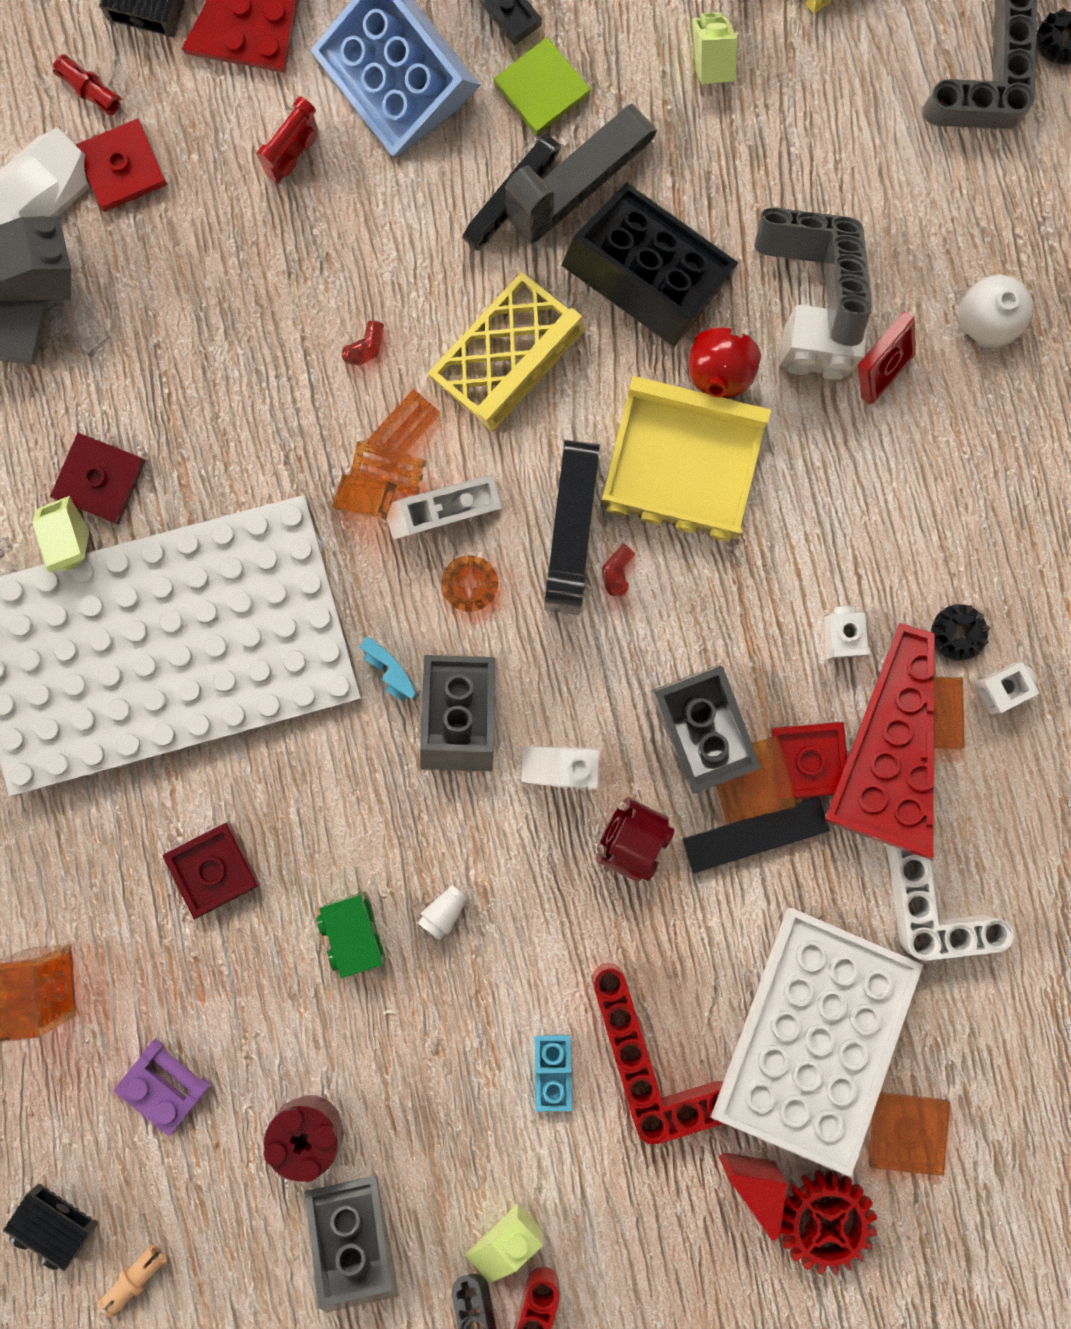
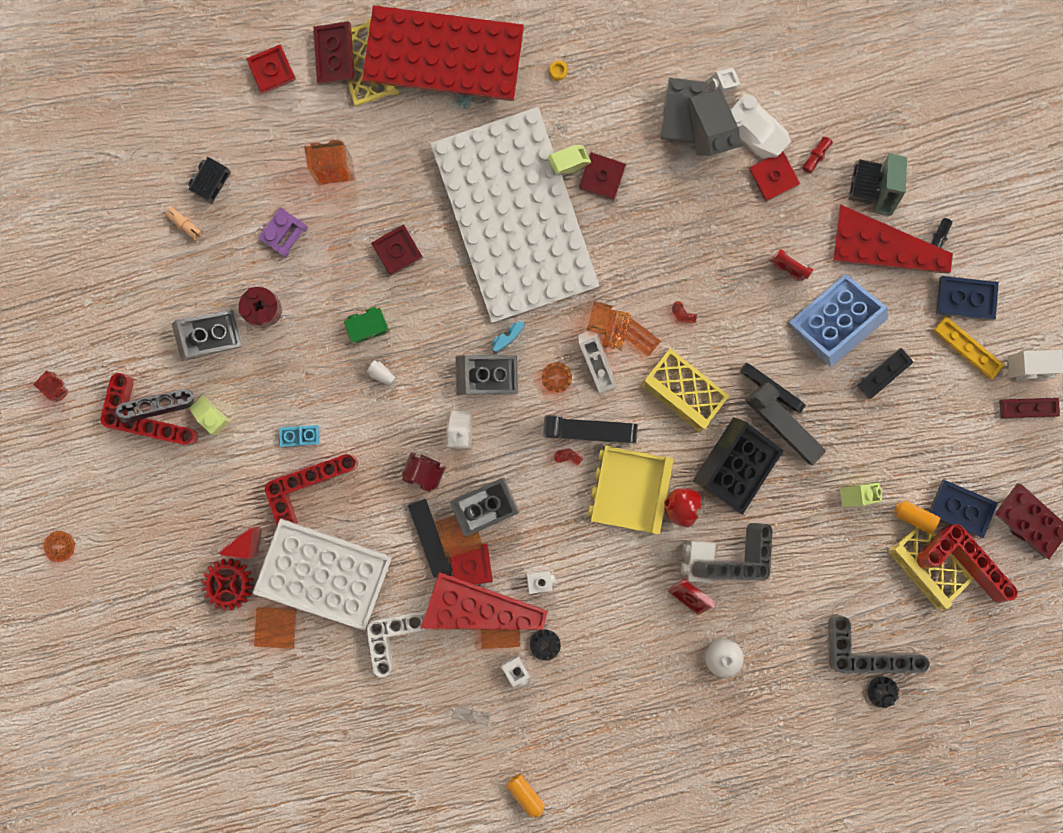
camera: 80 degrees right, 0 degrees up
(541, 86) = (834, 401): lime tile -> none

